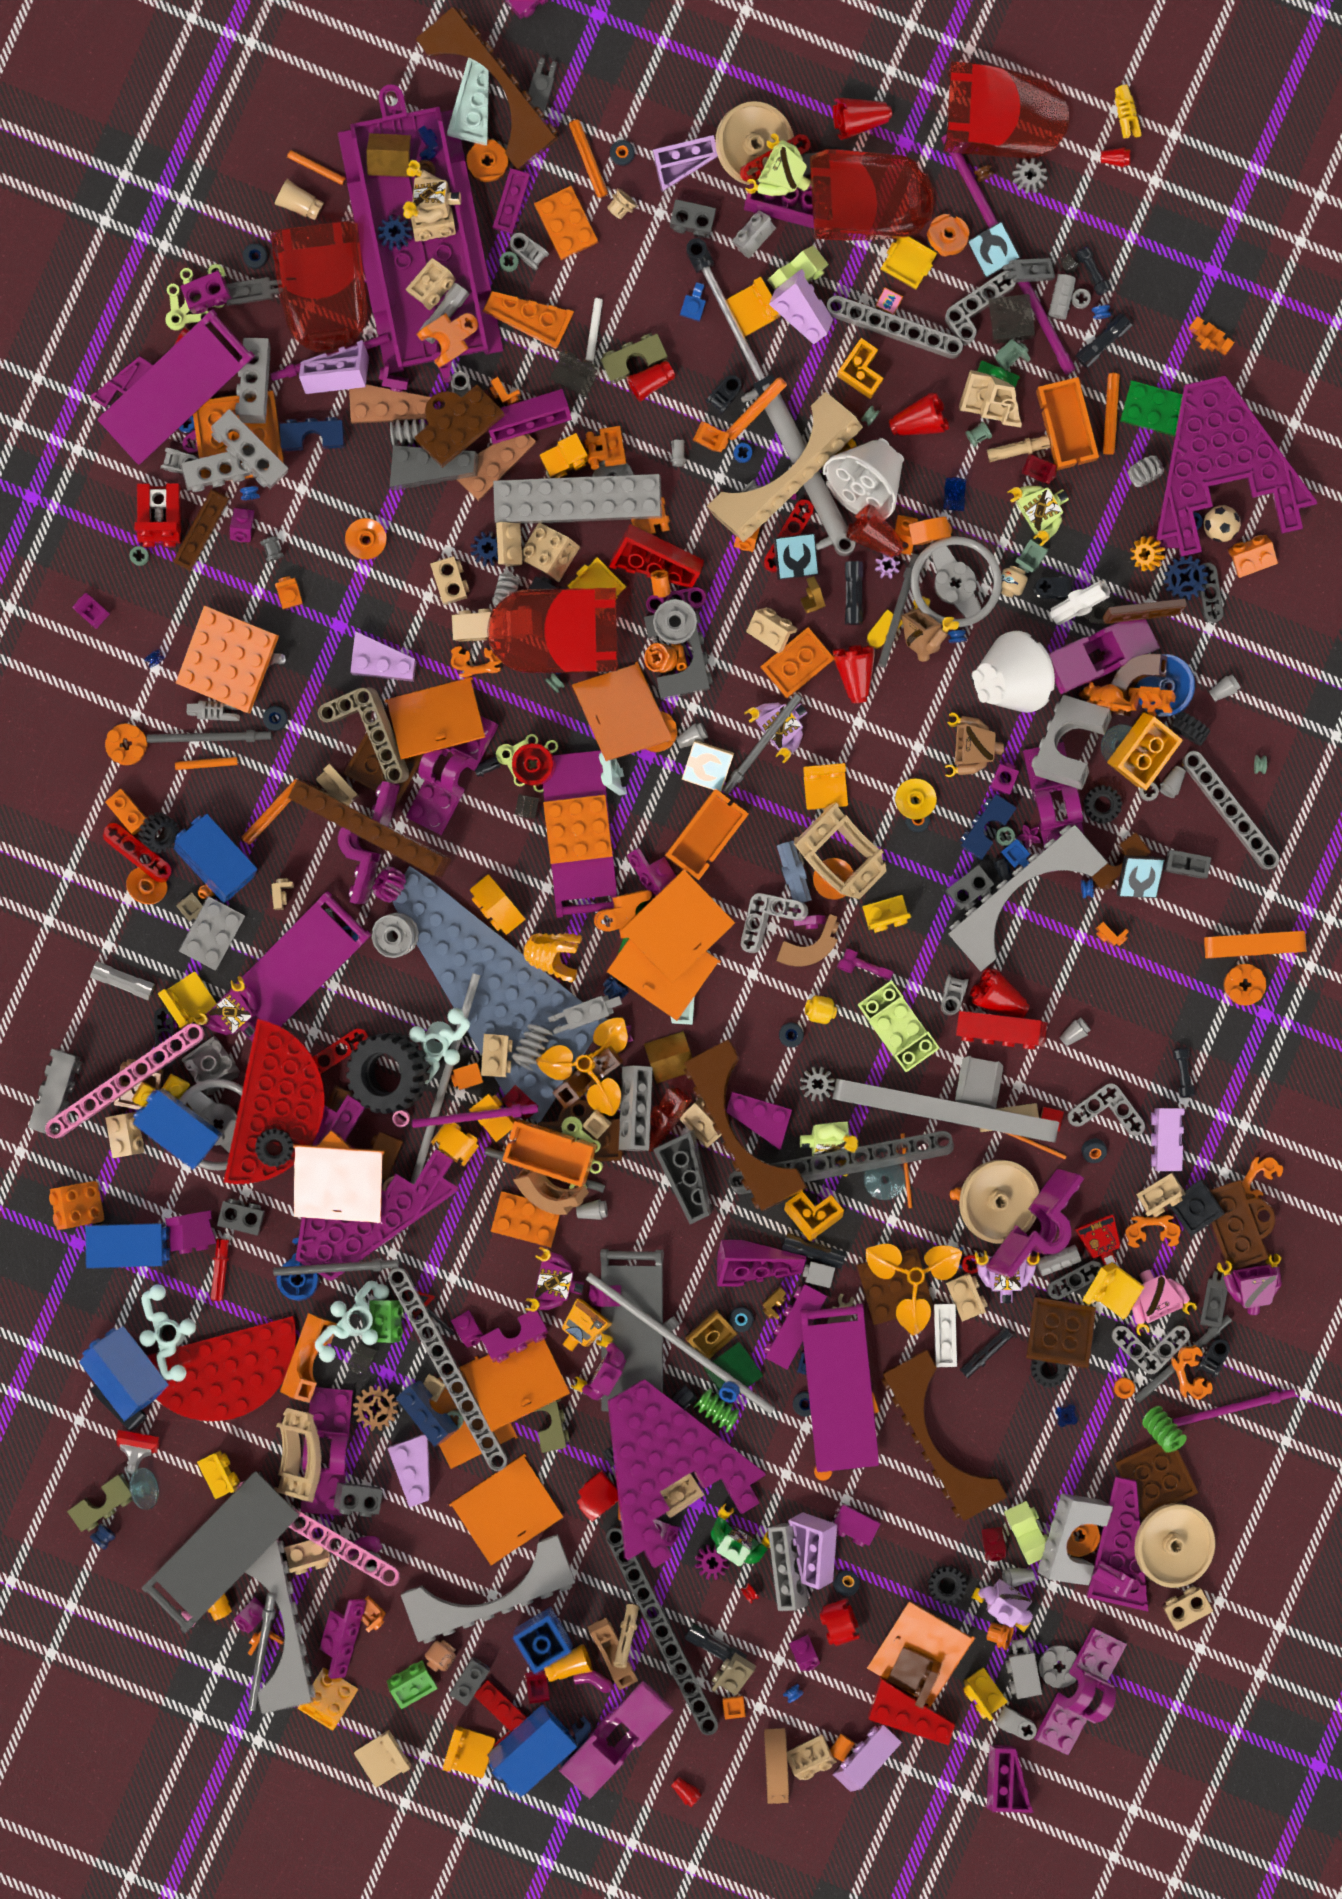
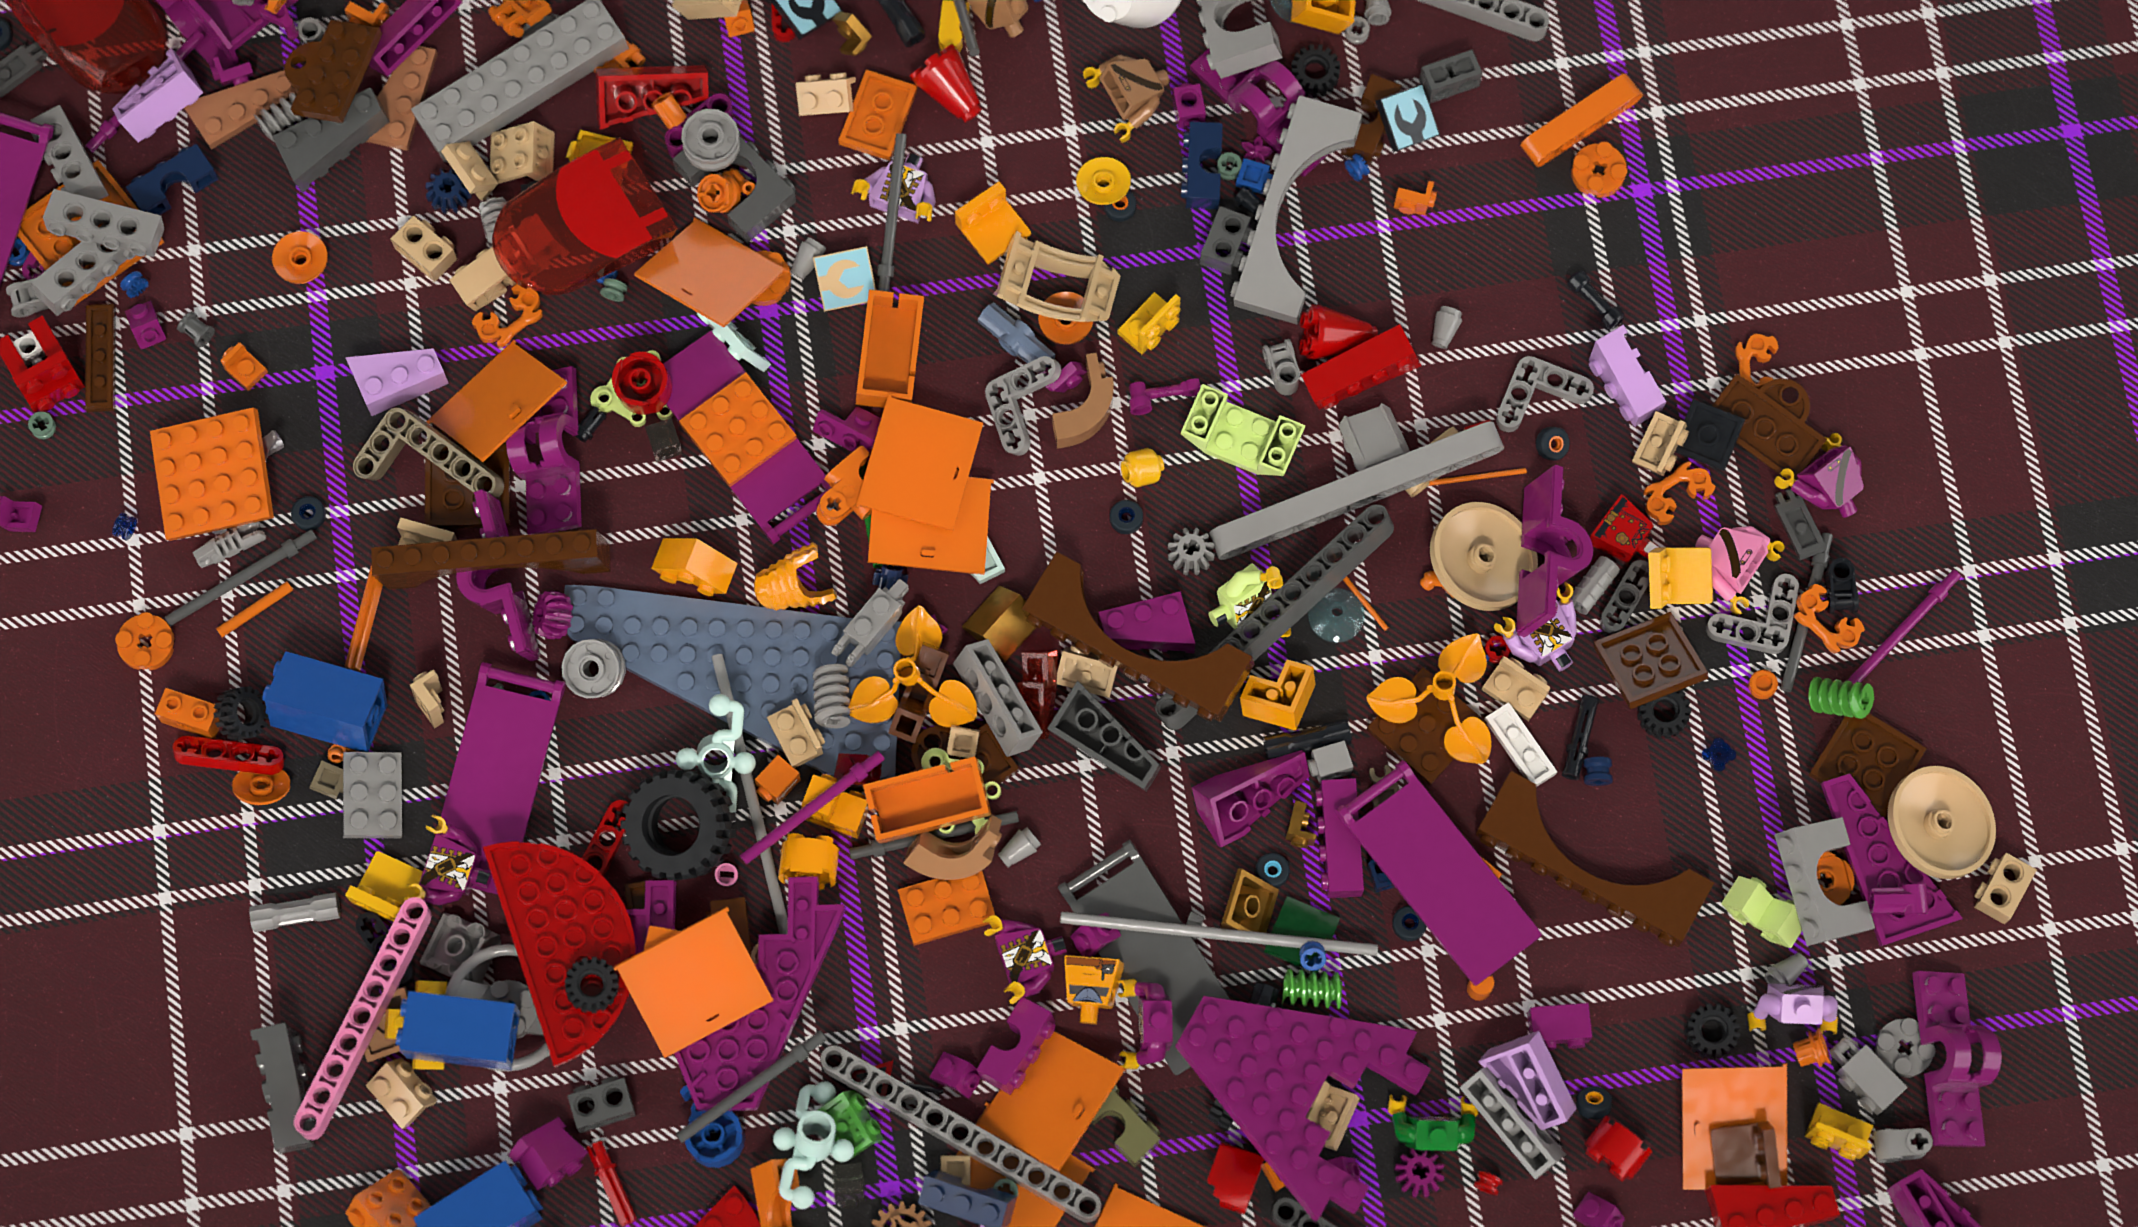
camera: 30 degrees left, 15 degrees down
(564, 457) = (481, 39): light orange brick -> none
(982, 1381) = (1598, 771): none -> dark blue wheel
(993, 1544) = (1734, 950): dark red bracket -> none

